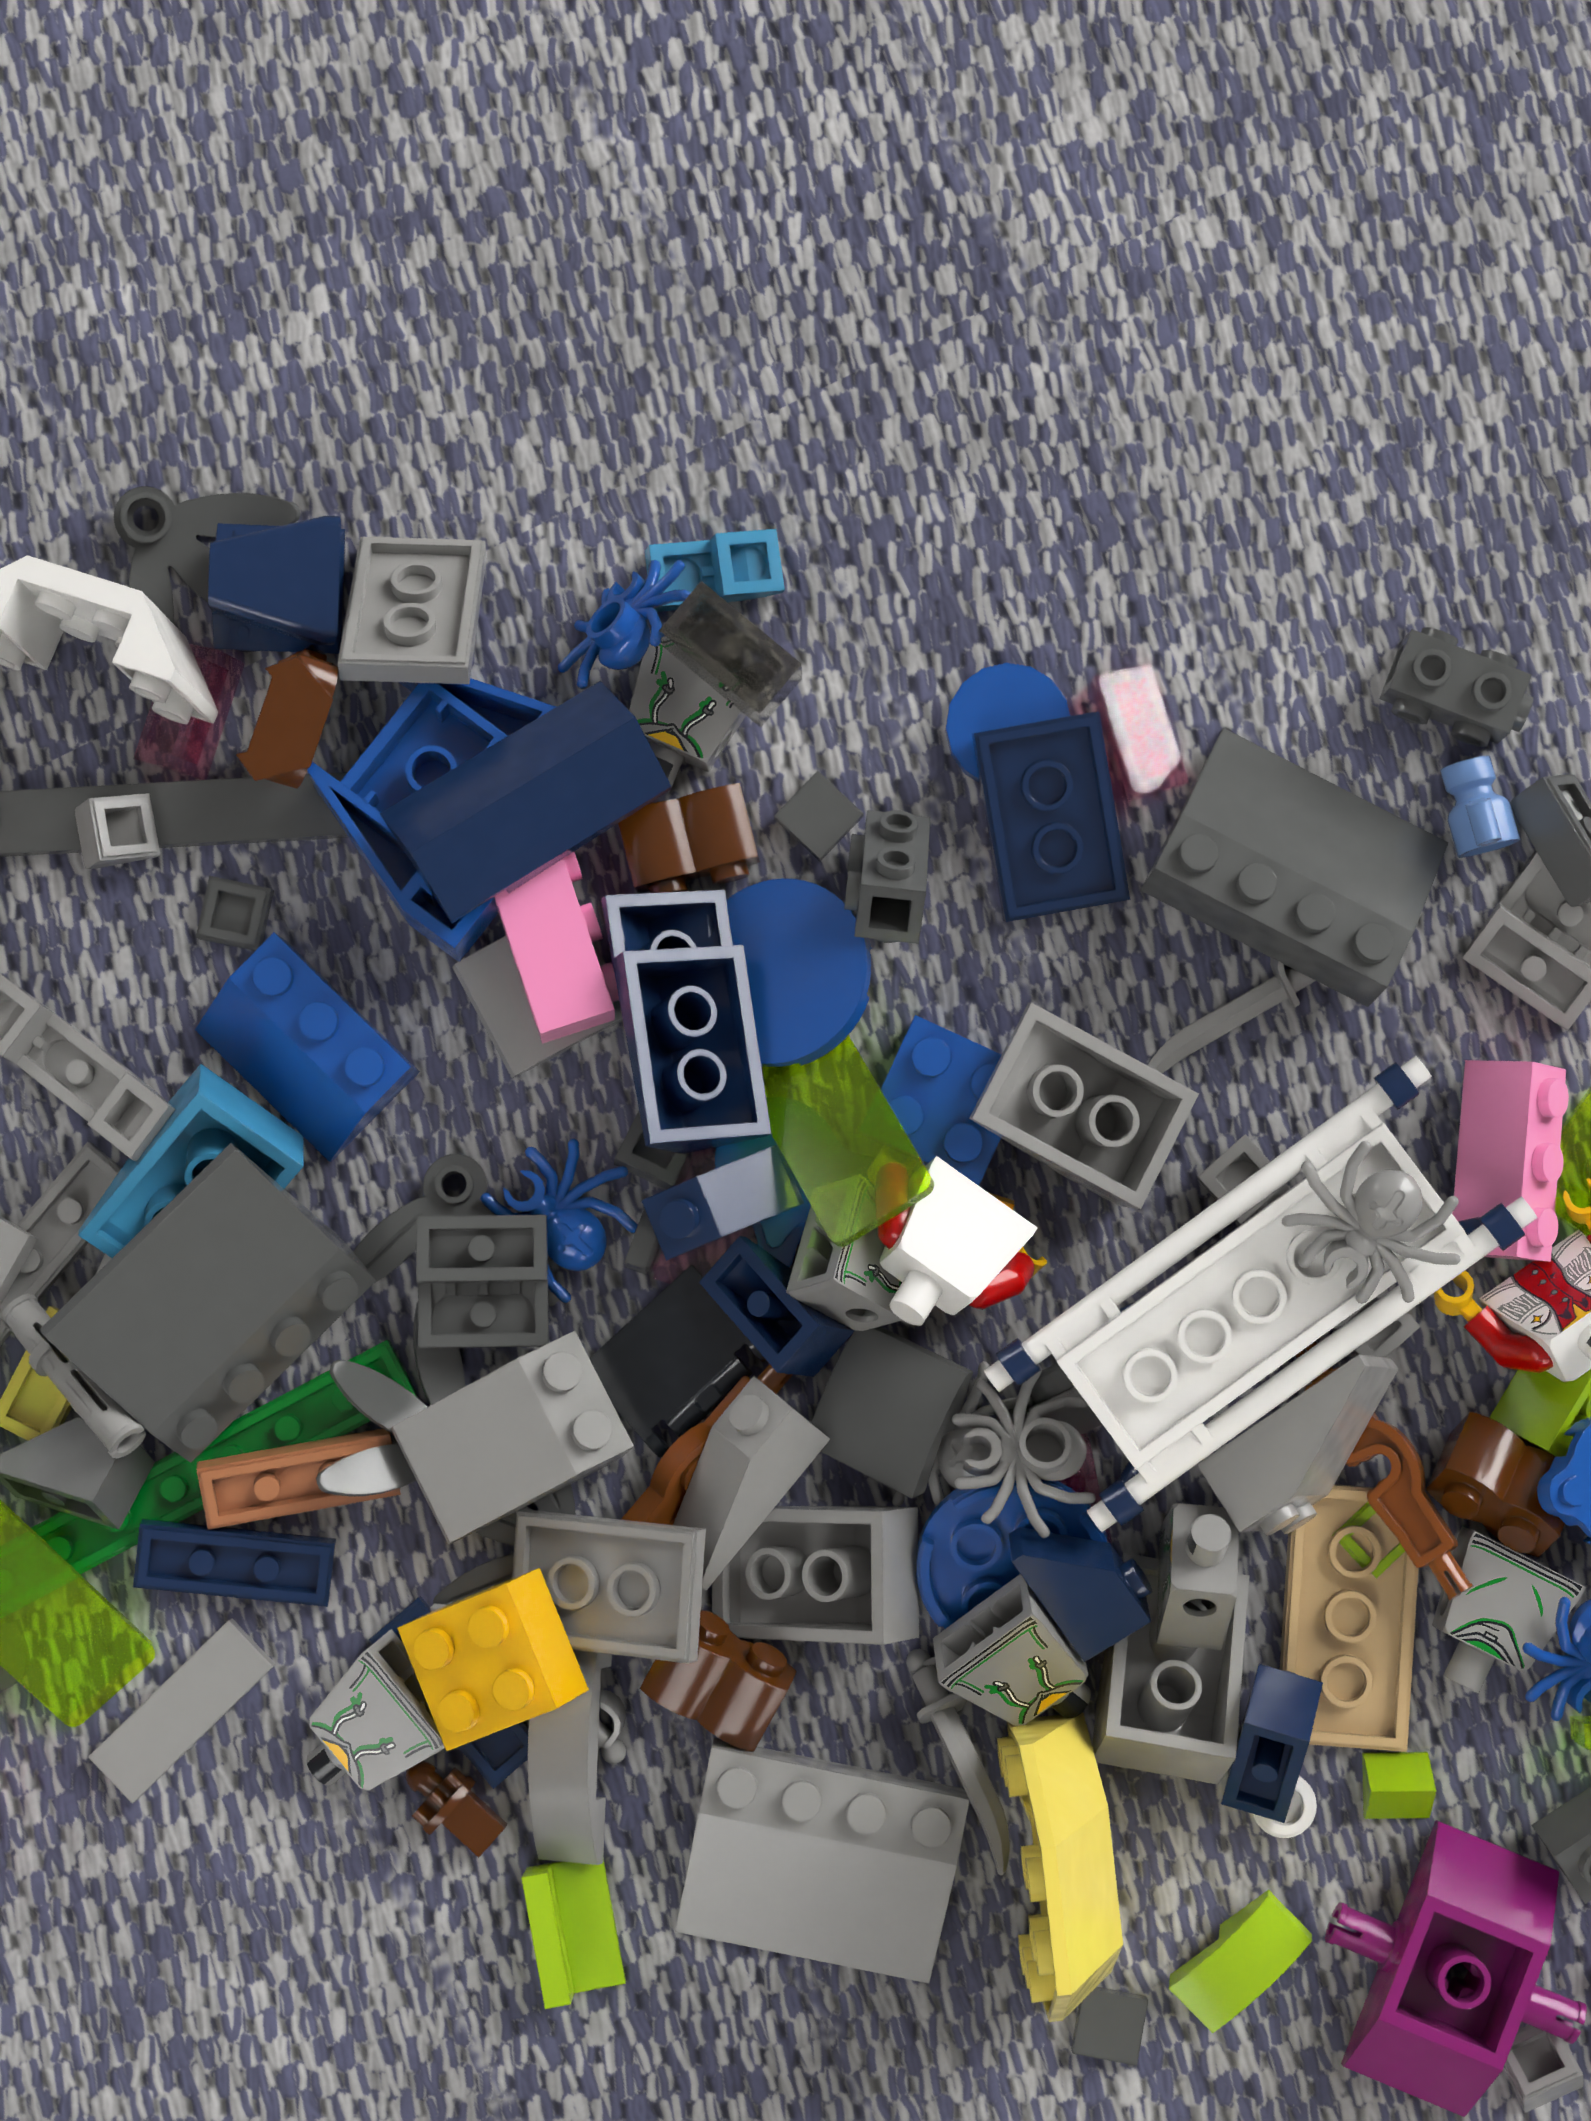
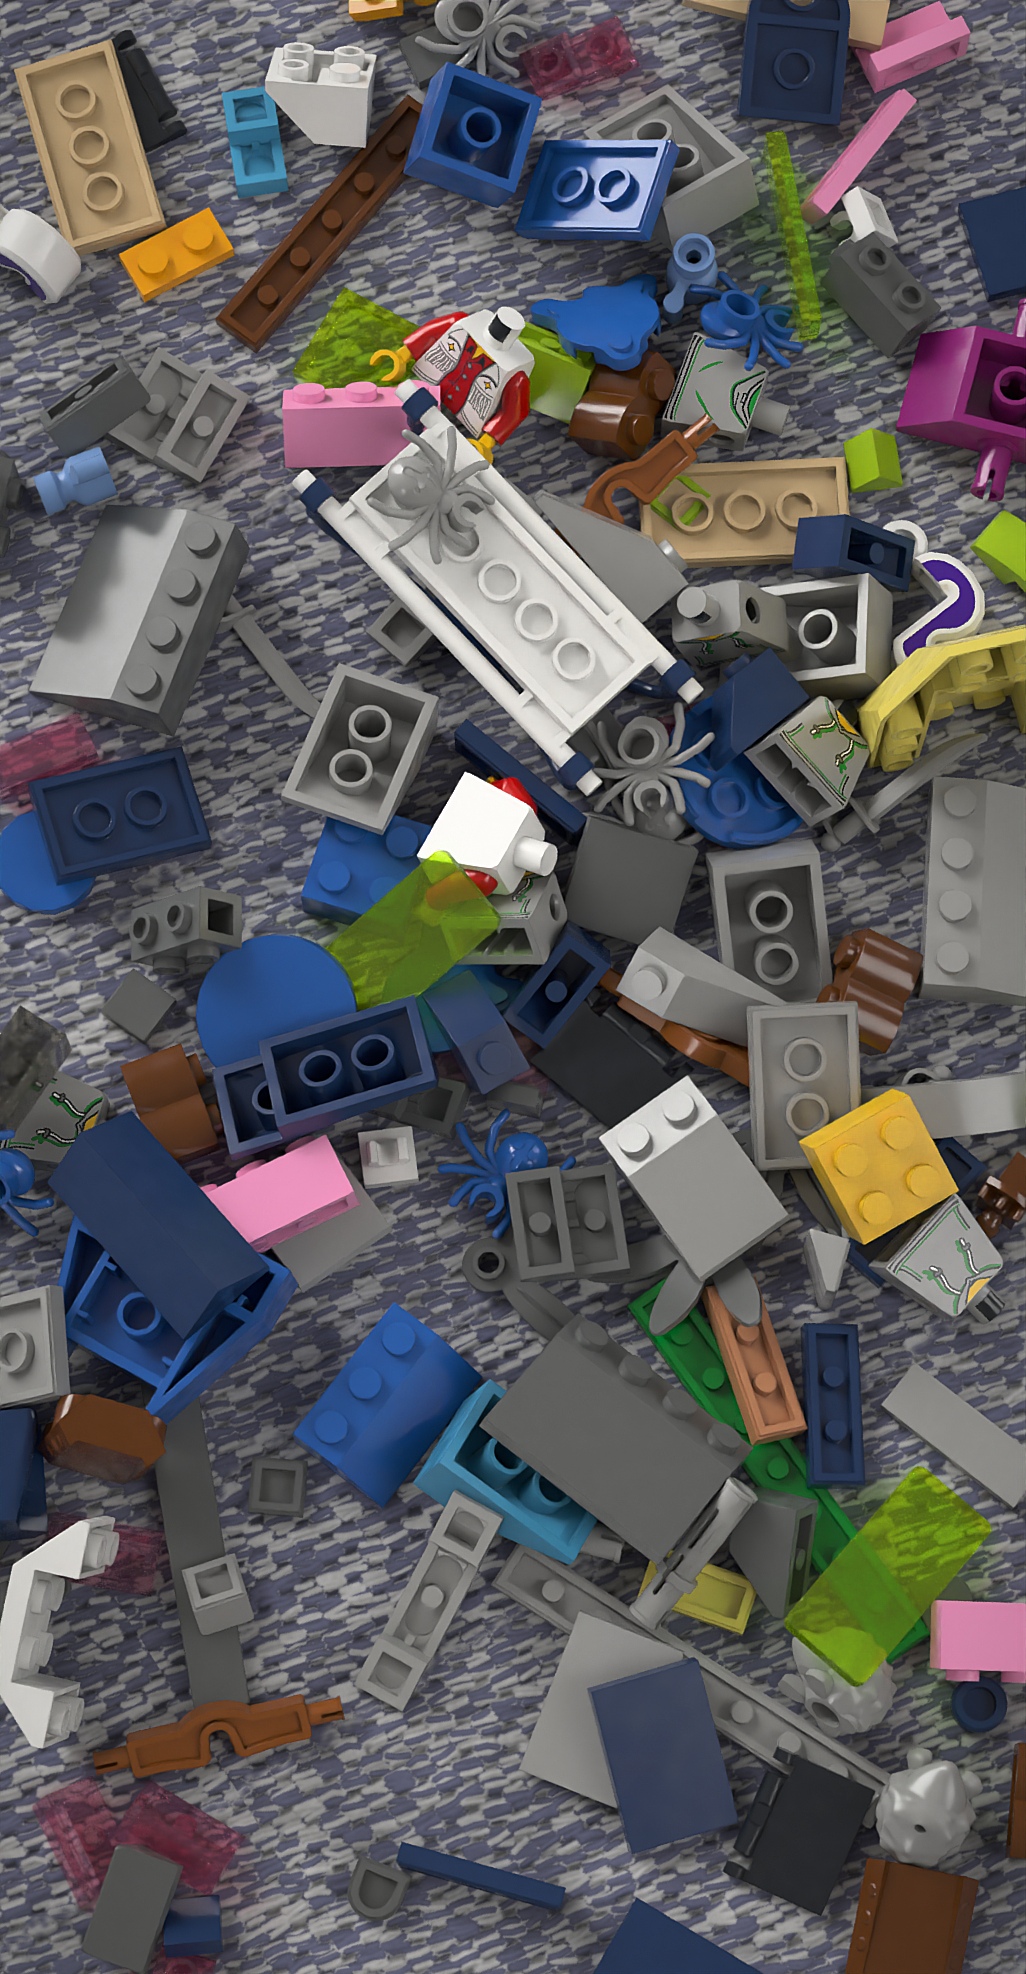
camera: 100 degrees left, 10 degrees down
(385, 1582) = (825, 1261): none -> light grey slope
(600, 1084) = (388, 1157): none -> white tile
(1034, 1296) = (496, 762): none -> dark blue tile
(1167, 1845) = (958, 608): none -> animal

